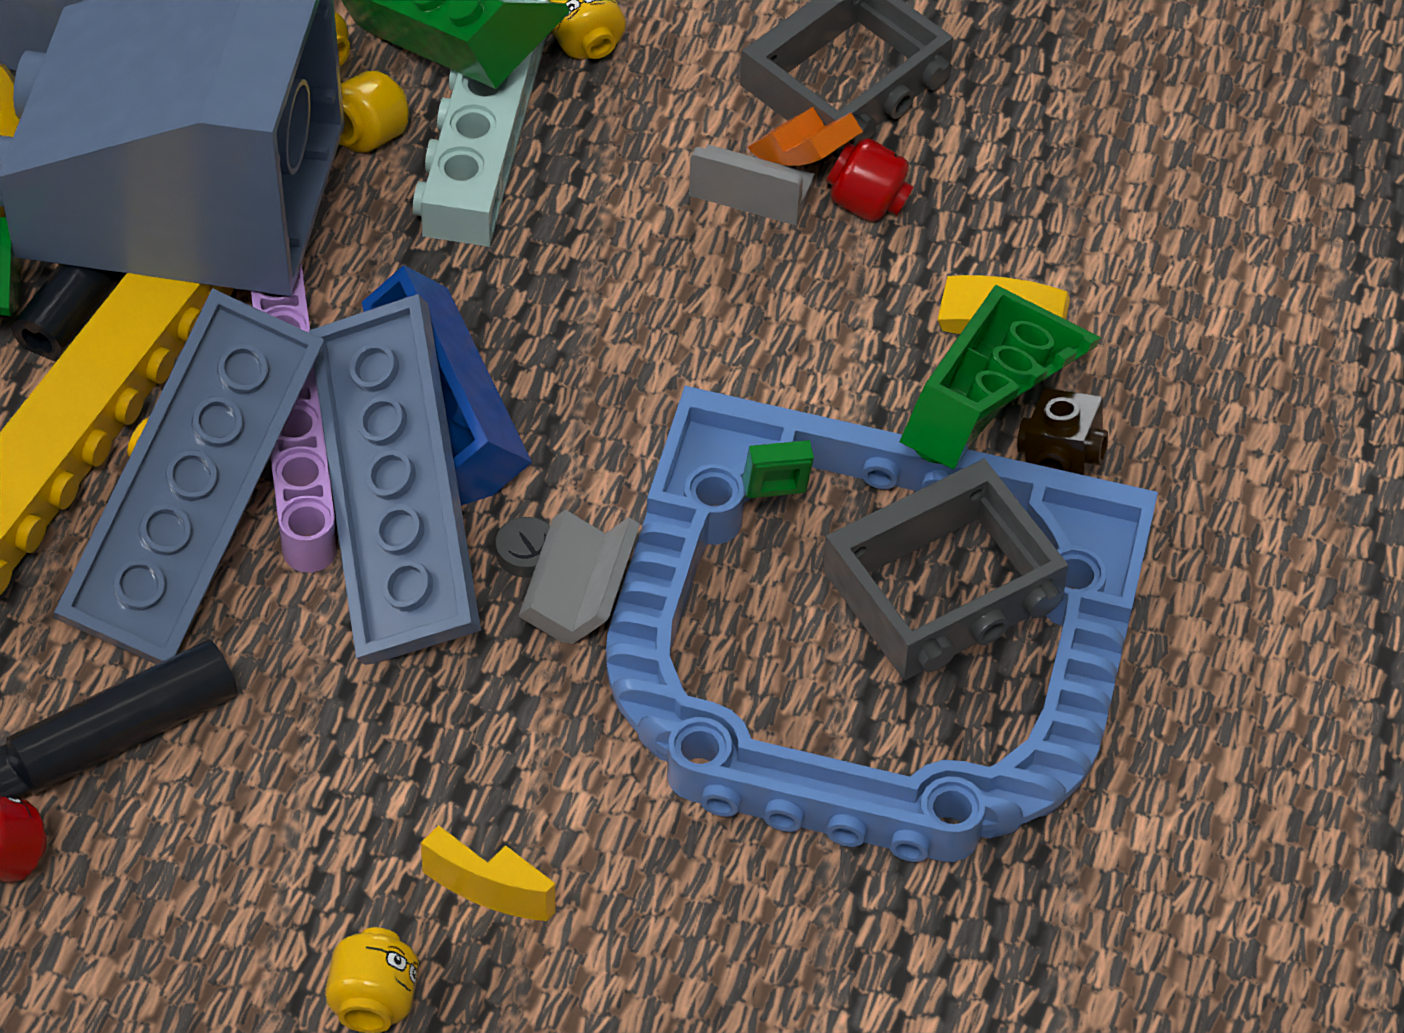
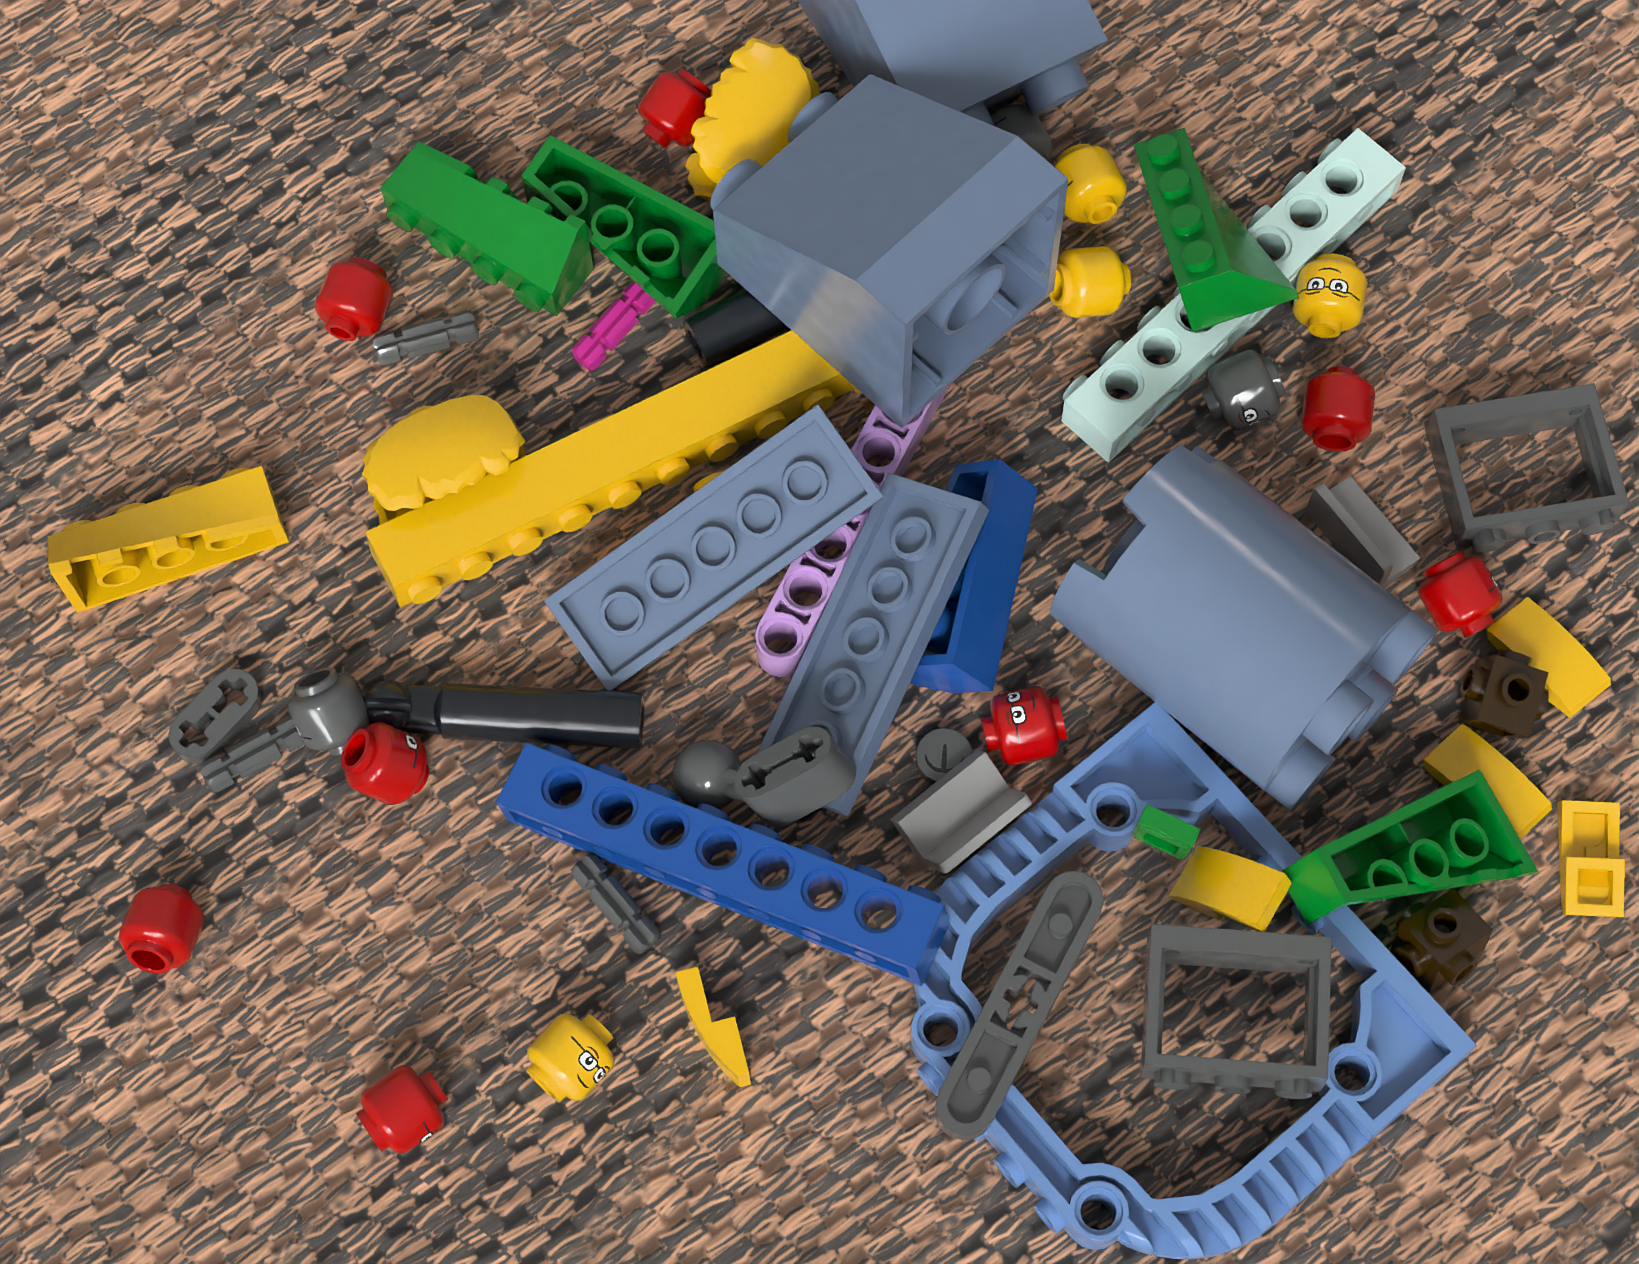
camera: 40 degrees right, 15 degrees up
(312, 836) = (615, 903): none -> dark grey axle
(370, 753) = (900, 949): none -> blue brick
(398, 628) = (775, 783): none -> dark grey beam
(567, 124) = (1244, 389): none -> dark grey head
(581, 474) = (1024, 725): none -> red head
(659, 98) = (1338, 409): none -> red head
(719, 270) = (1242, 623): none -> sand blue brick
(767, 727) = (993, 1054): none -> dark grey piece
(805, 139) = (1430, 524): orange slope -> none
(865, 477) = (1231, 887): none -> yellow slope
(967, 231) = (1503, 695): none -> dark brown brick
(988, 190) = (1573, 673): none -> yellow slope
(1136, 329) = (1590, 859): none -> yellow slope

